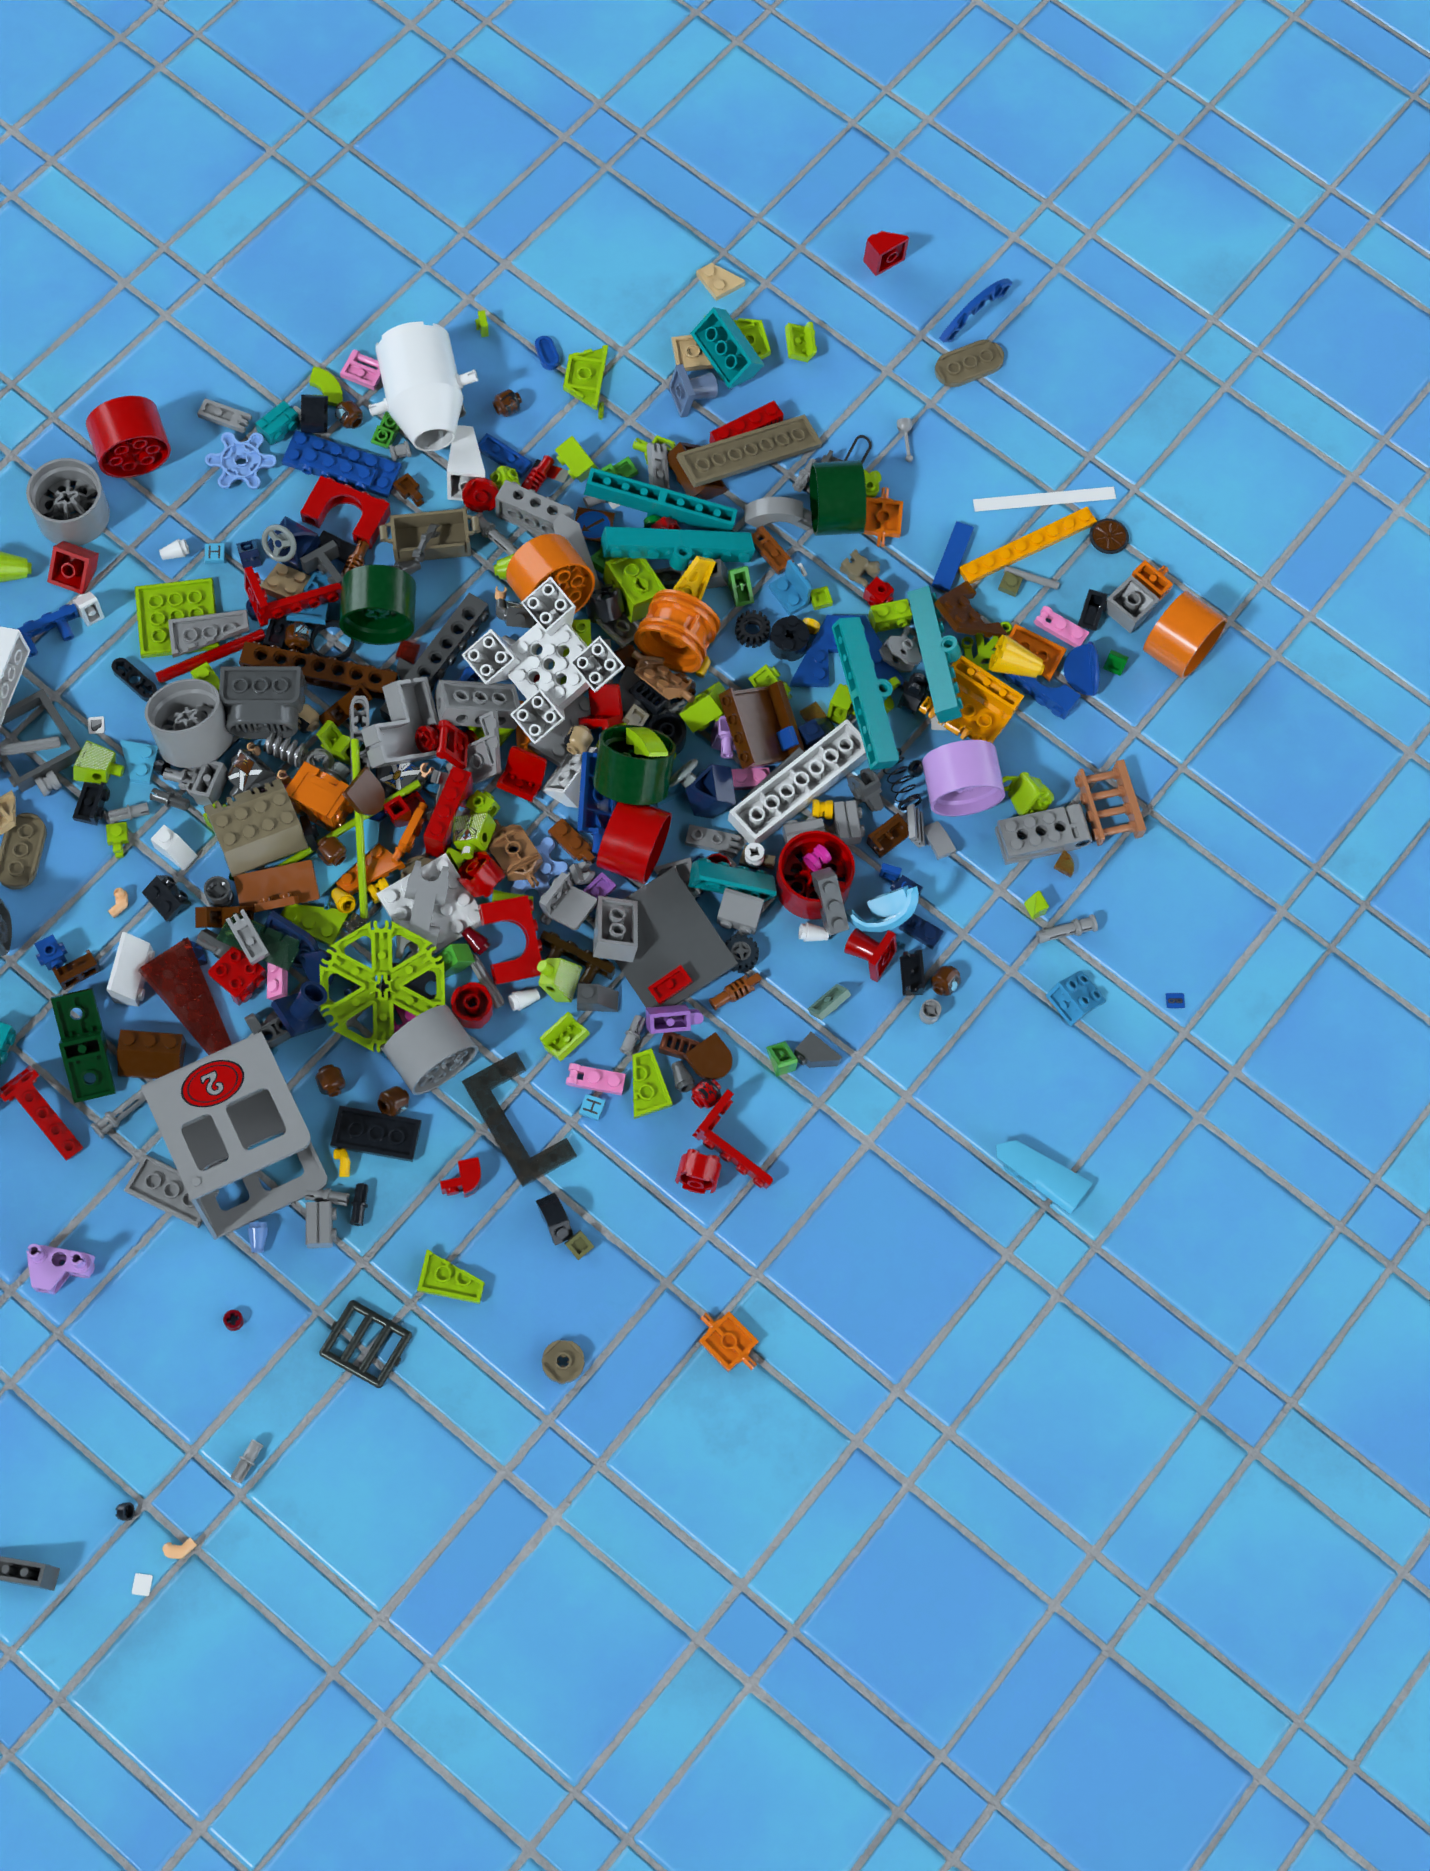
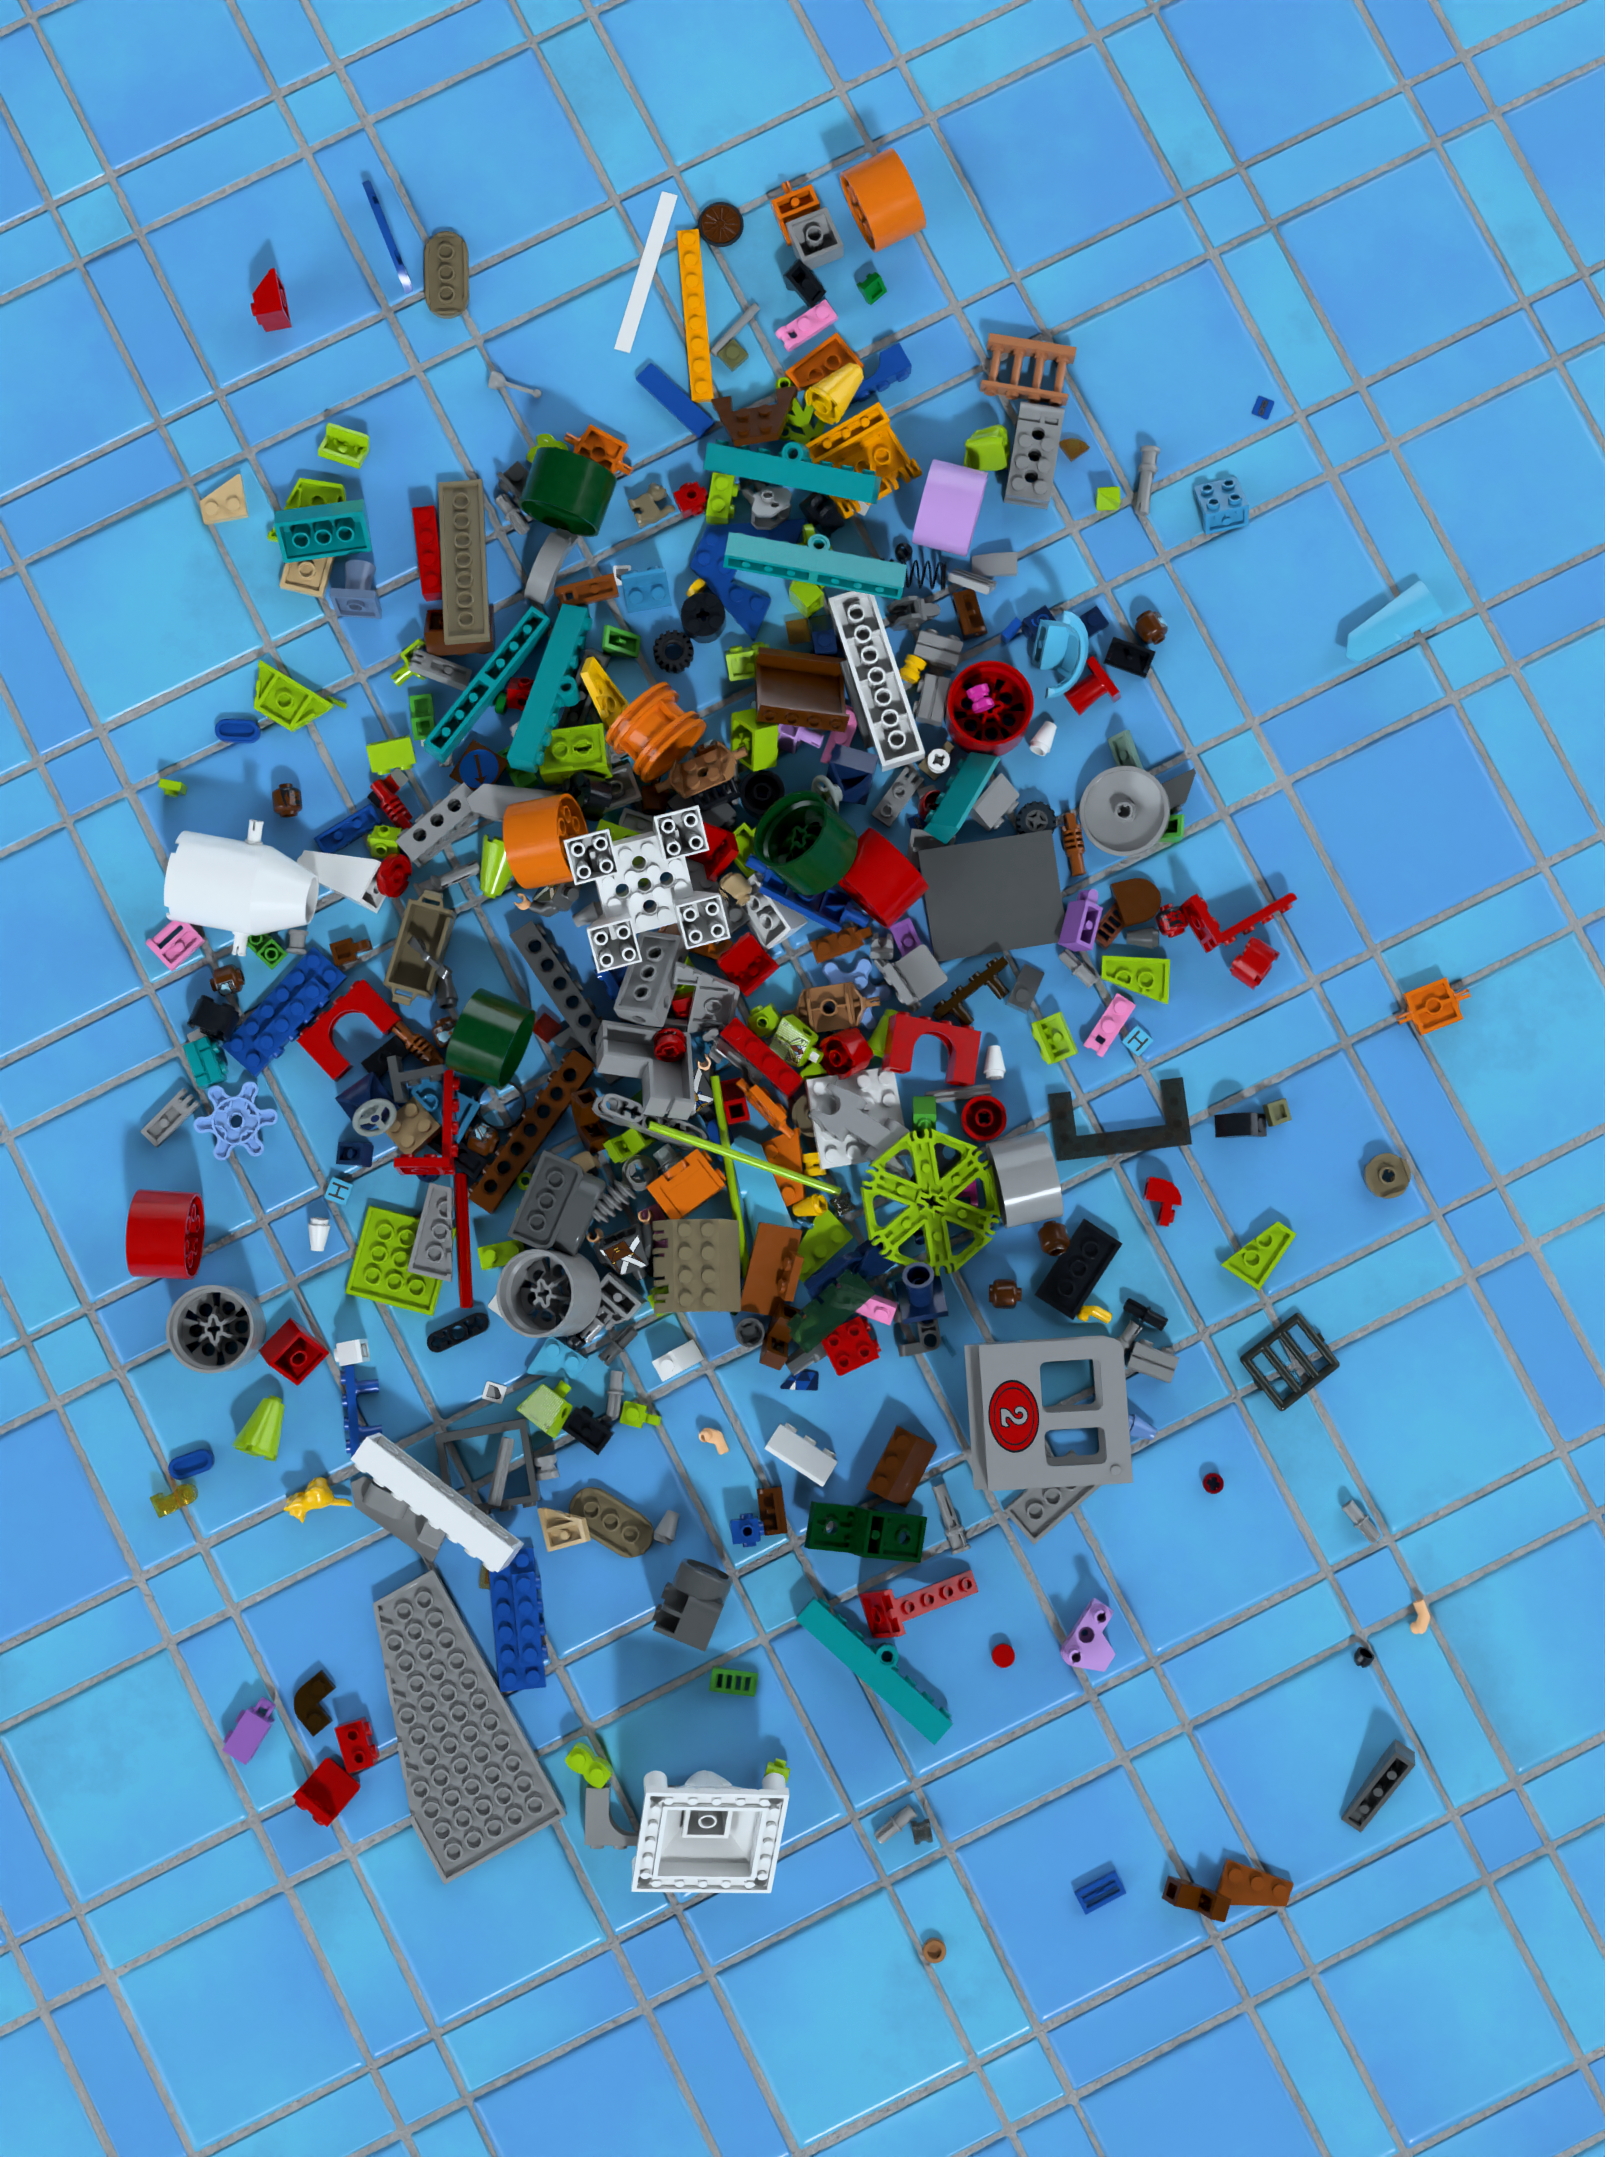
camera: 55 degrees left, 15 degrees up
(18, 1202) = (1003, 1655): none -> red tile
(29, 893) = (666, 1530): none -> light grey cone
(142, 1584) = (1438, 1665): white sticker -> none
(166, 896) = (729, 1388): black bracket -> none
(183, 988) = (842, 1407): clear red wing -> none
(248, 938) = (824, 1320): light grey hinge -> none
(310, 832) = (723, 1211): black plate -> none
(327, 385) = (179, 989): lime tile -> none
(331, 851) = (757, 1197): reddish brown head -> none
(365, 793) = (713, 1137): reddish brown tile -> none
(457, 744) = (688, 1020): red plate -> none
(476, 941) = (913, 1086): dark red cone -> none
(559, 978) = (991, 1017): lime torso -> none
(616, 929) = (962, 937): light grey slope -> none
(635, 716) = (738, 820): dark tan plate -> none
(645, 742) = (792, 820): lime slope -> none
(670, 985) = (1044, 908): red plate -> none
(780, 1017) = (1124, 811): none -> light grey dish
(787, 738) = (822, 670): blue tile -> none
(821, 598) = (669, 561): lime plate -> none
(829, 892) = (1027, 702): dark grey arch -> none
(860, 436) = (503, 452): black piece -> none
(932, 1008) = (1179, 654): light grey wheel -> none
(1083, 669) = (866, 325): blue piece -> none

